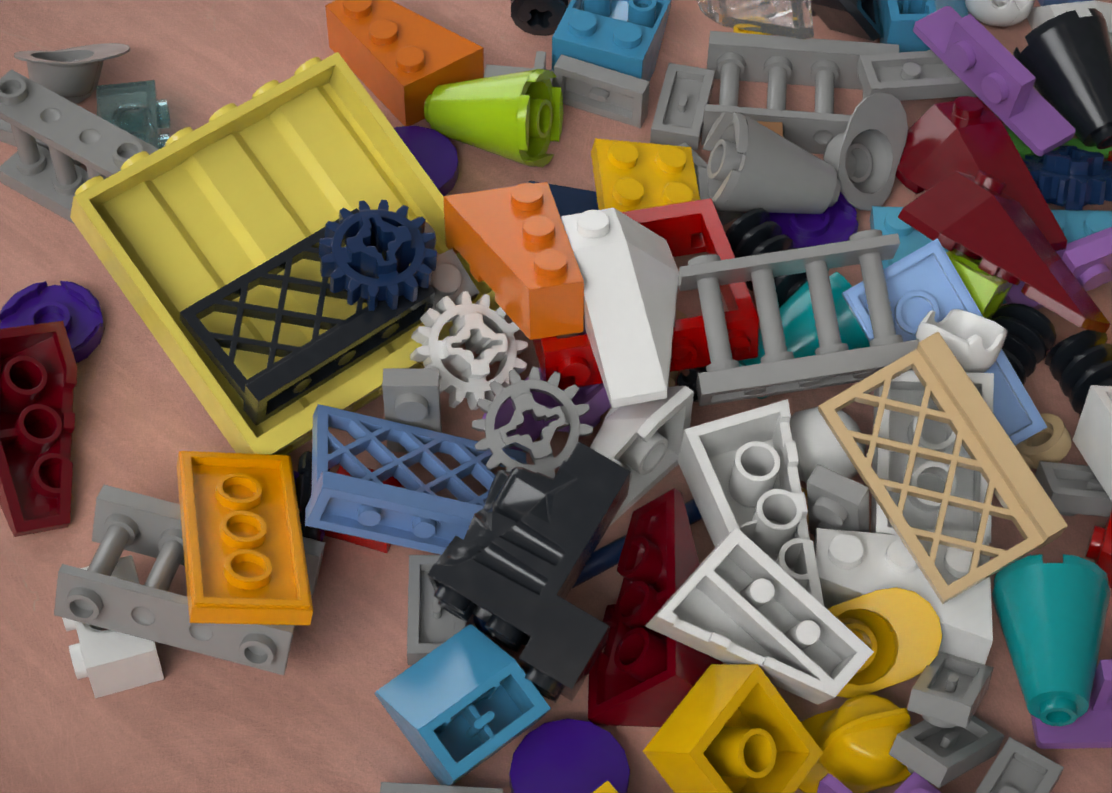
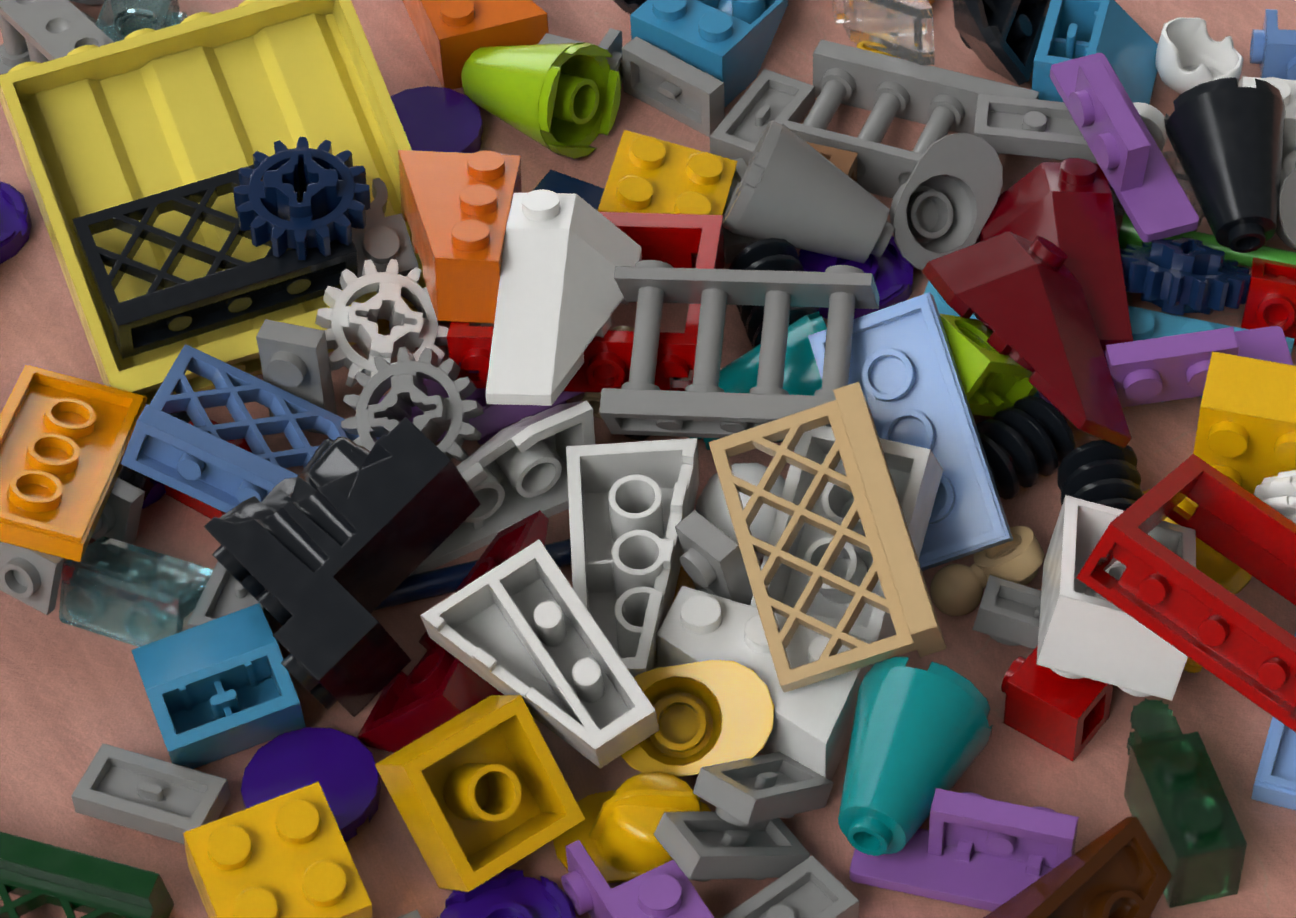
camera: 20 degrees right, 5 degrees down
(350, 637) = (129, 592): none -> clear light blue bracket
(969, 336) = (920, 415): white hair -> none

